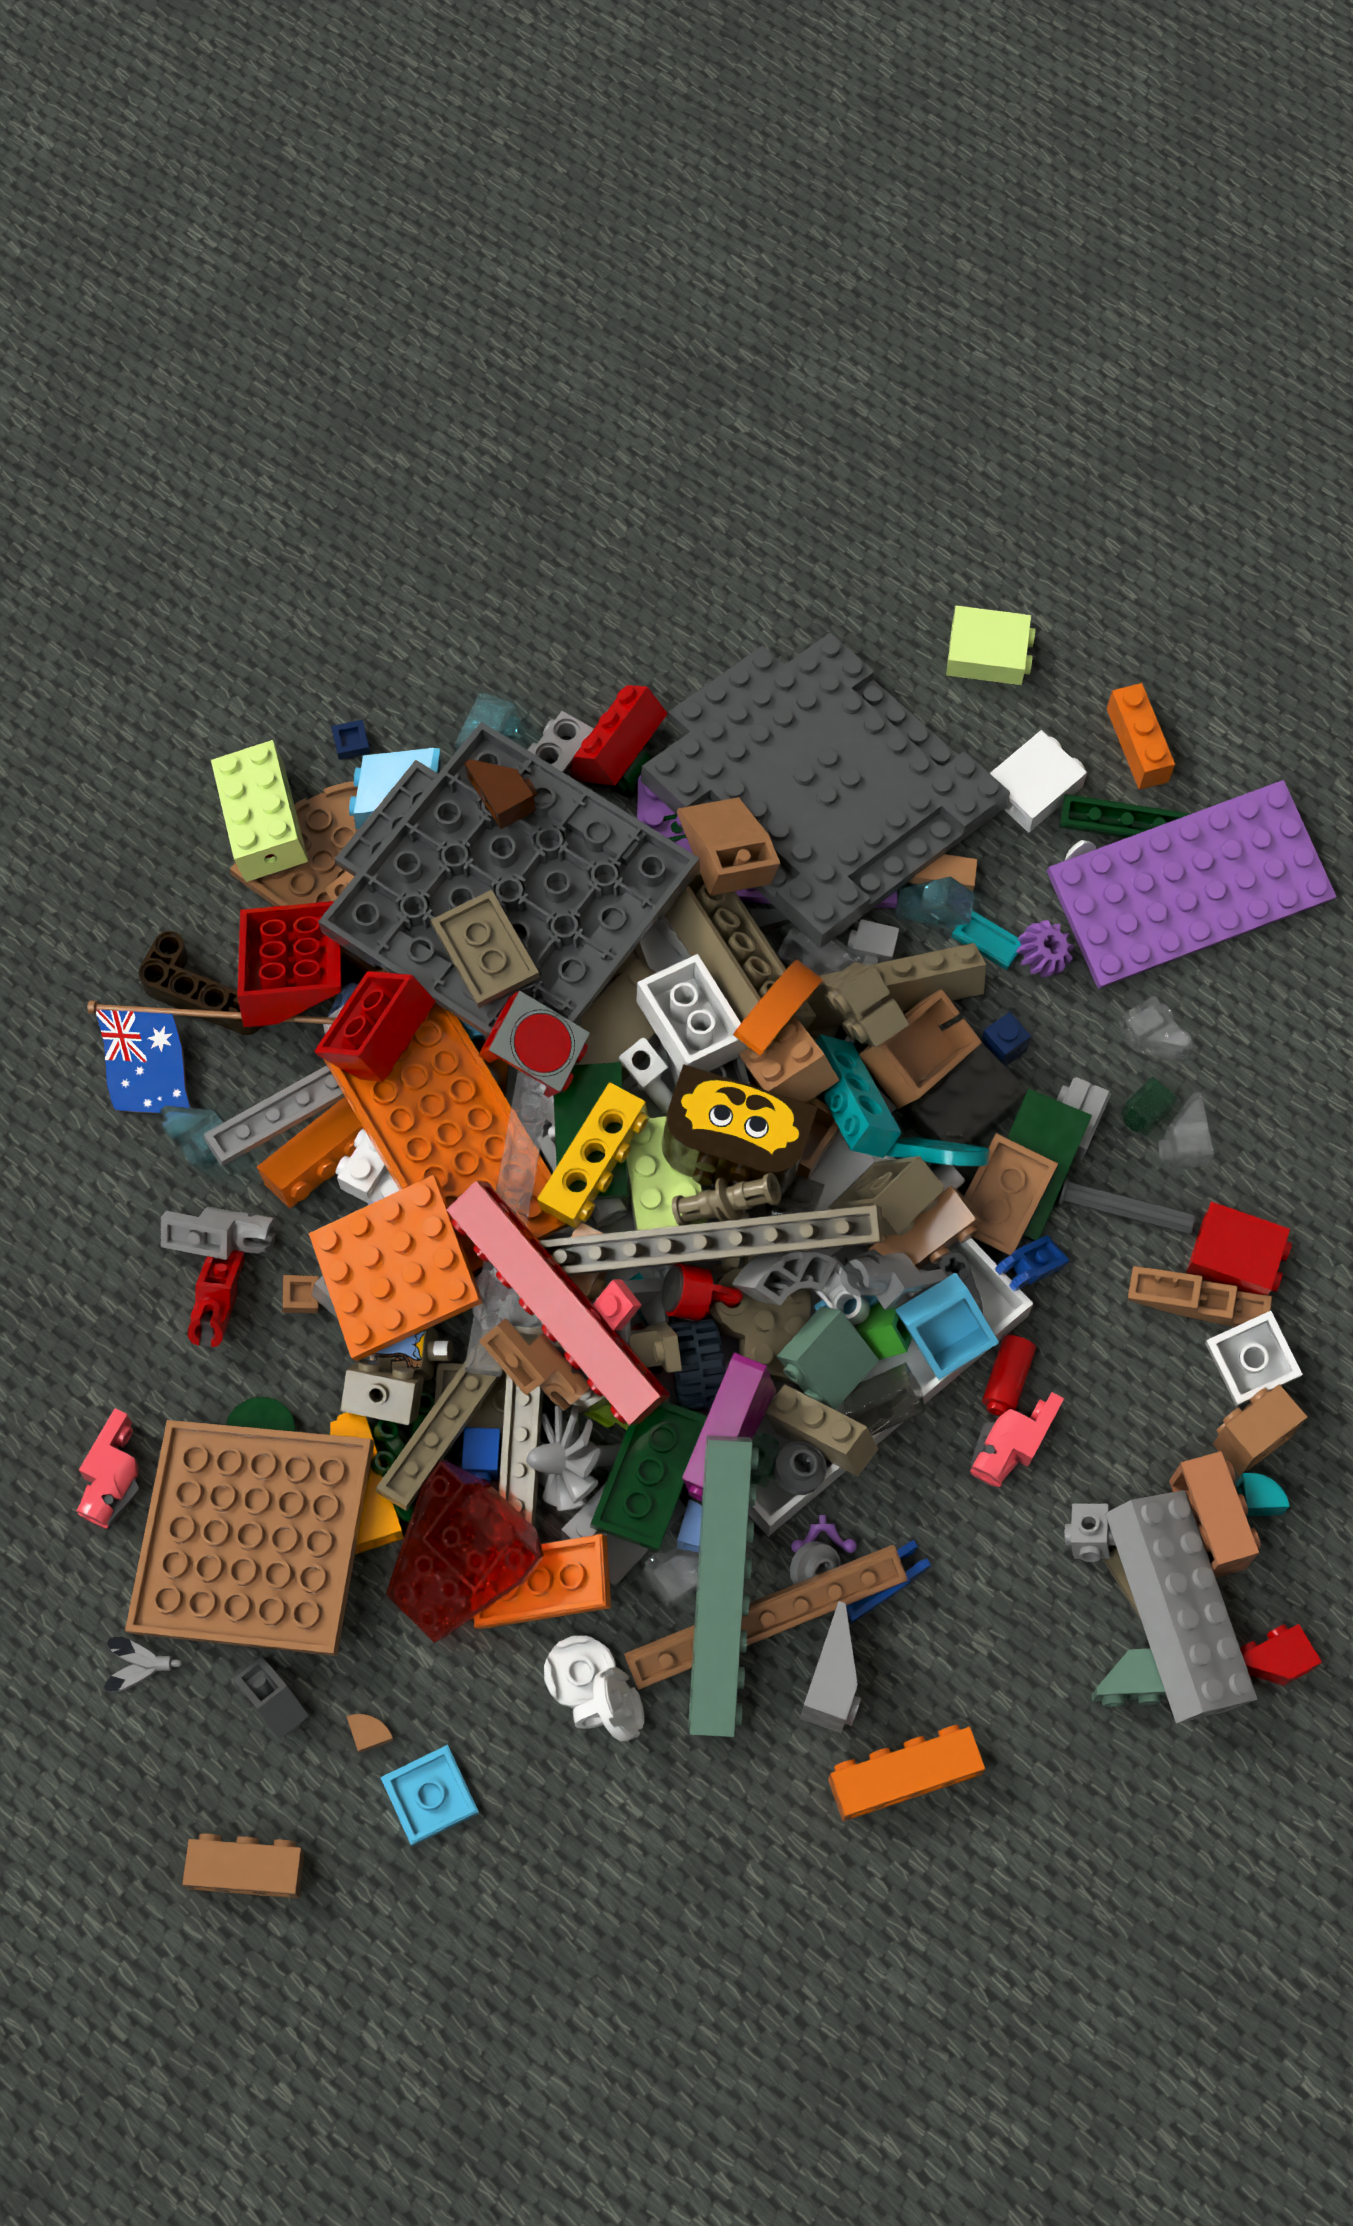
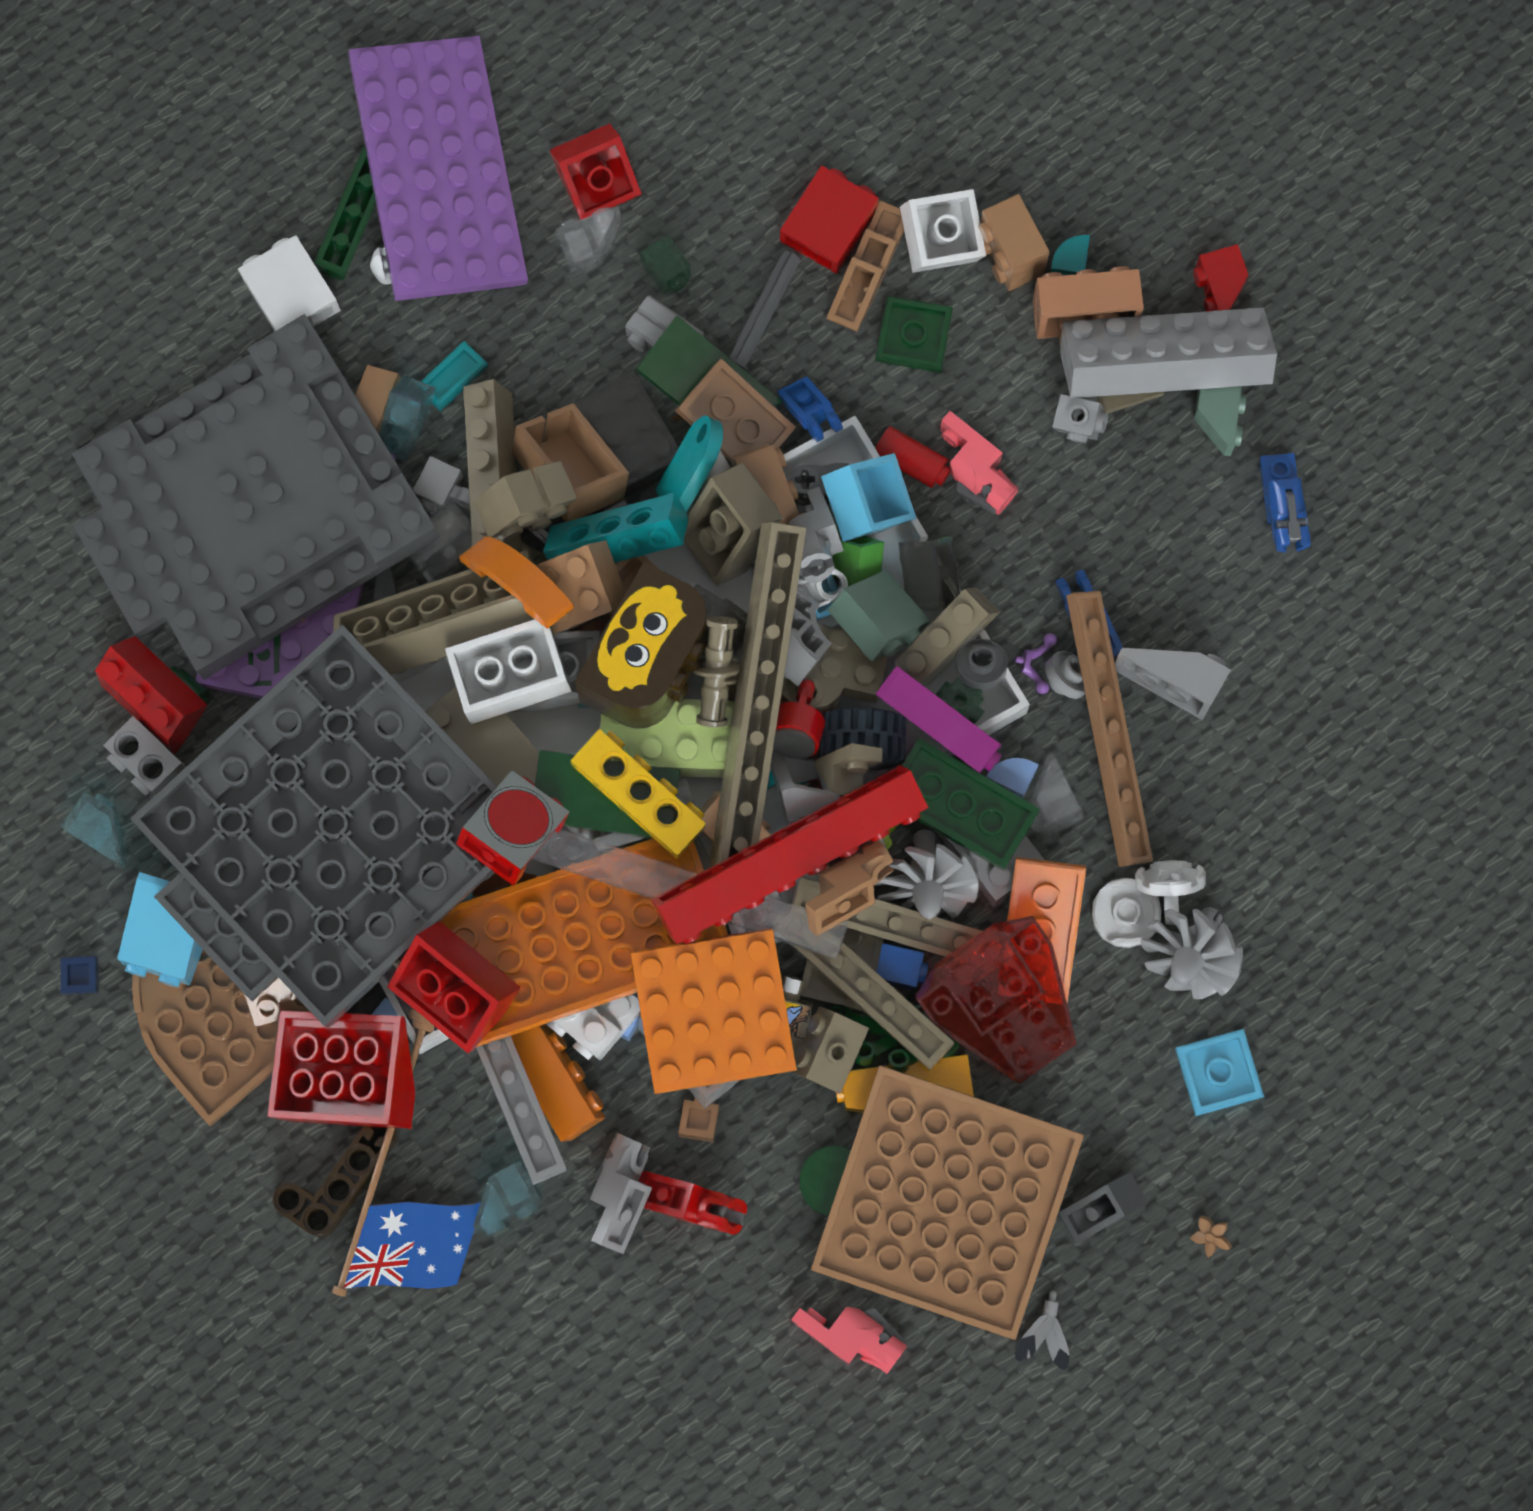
camera: 75 degrees left, 10 degrees up
(243, 1866) = (1261, 1255): medium nougat brick -> none
(258, 1812) = (1211, 1235): none -> medium nougat plant
(259, 811) = (152, 1081): yellowish green brick -> none
(368, 1732) = (1150, 1120): medium nougat tile -> none
(485, 949) = (399, 857): dark tan plate -> none
(502, 791) = (224, 808): reddish brown slope -> none
(542, 1742) = (1200, 955): none -> light grey piece
(617, 1304) = (805, 796): coral plate -> none
(648, 1079) = (548, 730): white bracket -> none
(721, 1584) = (1084, 757): sand green brick -> none
(730, 846) = (315, 597): medium nougat slope -> none
(905, 1773) = (1274, 632): orange brick -> none
(990, 645) = (121, 298): yellowish green brick -> none
(1006, 1039) = (569, 381): dark blue brick -> none
(1045, 948) = (479, 322): medium lavender gear -> none
(1052, 1762) = (1284, 501): none -> blue plate
(1140, 736) = (262, 175): orange brick -> none
(1141, 1357) = (914, 334): none -> dark green tile
(1187, 1137) = (703, 236): clear slope -> none
(1227, 1024) = (595, 171): none -> red slope

